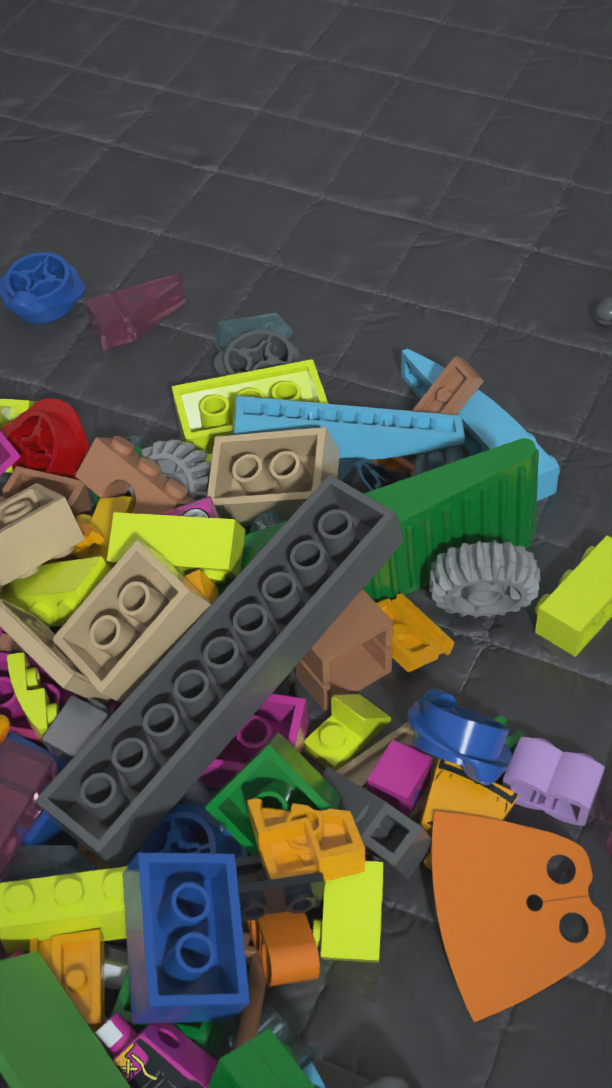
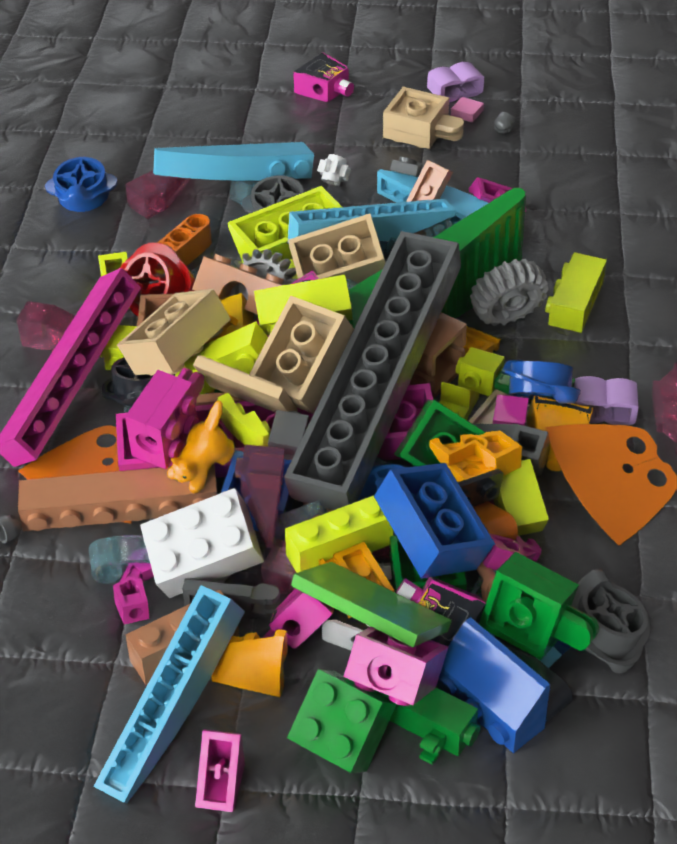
camera: 20 degrees left, 5 degrees down
(119, 399) = (190, 237): none -> orange beam
(232, 299) = (235, 162): none -> medium azure slope
(289, 1003) = (505, 547): none -> dark pink piece
(353, 334) = (334, 170): none -> white gear
(398, 684) = (479, 370): none -> neon yellow brick
(402, 199) = (323, 79): none -> dark pink torso
(439, 354) = (406, 166): none -> hinge
(495, 283) = (420, 119): none -> tan brick
(546, 421) = (487, 190): none -> dark pink slope
(571, 237) = (456, 82): none -> lavender brick
(571, 279) = (467, 109): none -> bright pink tile

